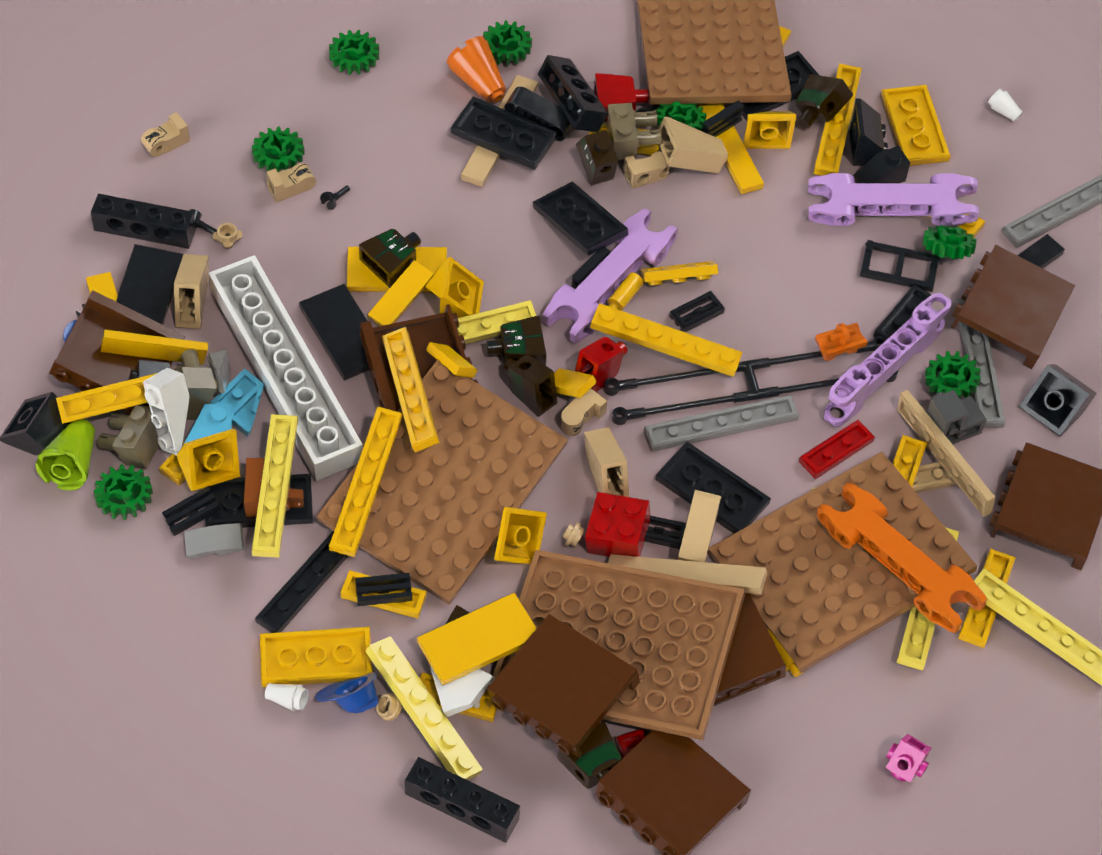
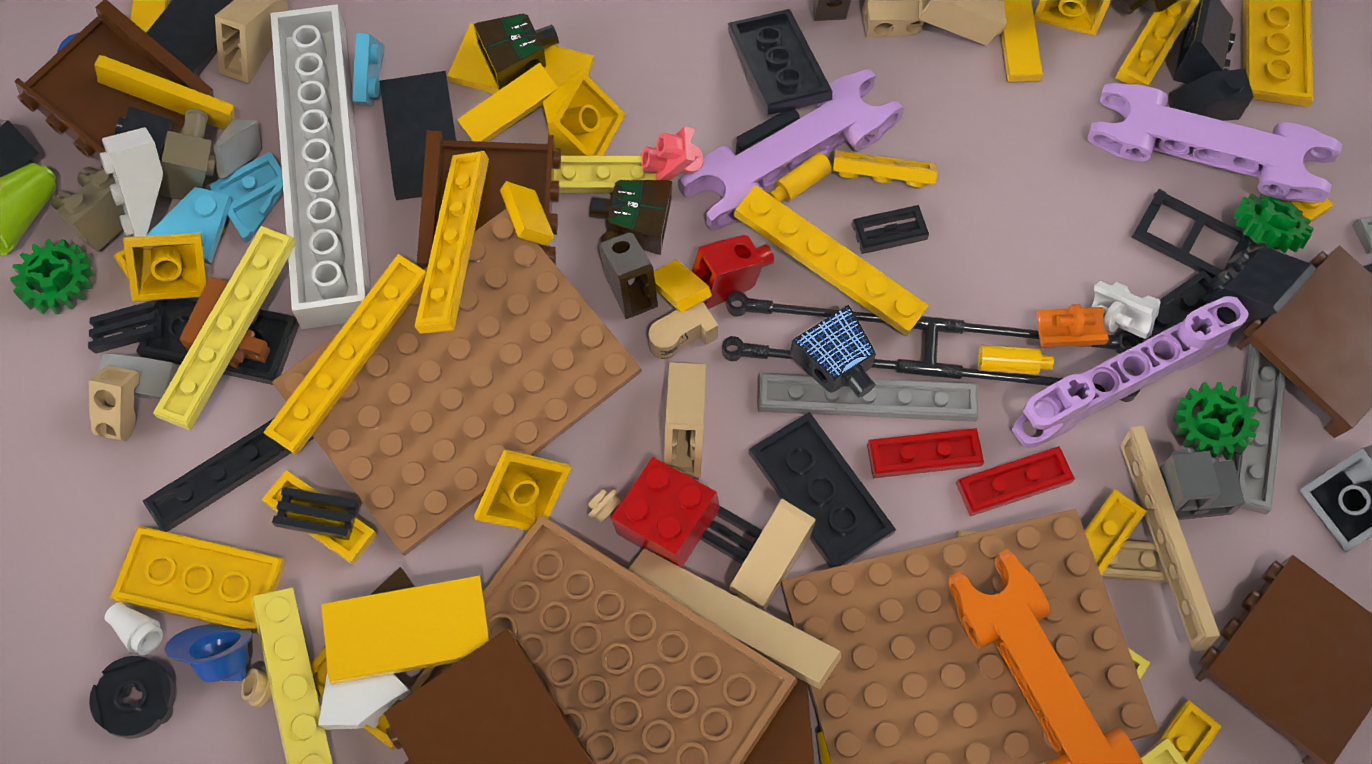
camera: 20 degrees right, 10 degrees up
(102, 399) = (57, 146): yellow tile -> none
(211, 559) = (113, 402): none -> tan leg
(289, 285) = (367, 69): none -> medium azure wing
(306, 752) = (152, 709): none -> black plate
(536, 297) = (672, 155): none -> coral hips
(693, 397) = (836, 353): none -> black torso
(772, 447) = (925, 453): none -> red tile
(809, 372) = (1013, 360): none -> yellow cylinder
(872, 321) = (1125, 309): none -> white hips
(953, 279) = (1260, 281): none -> black slope

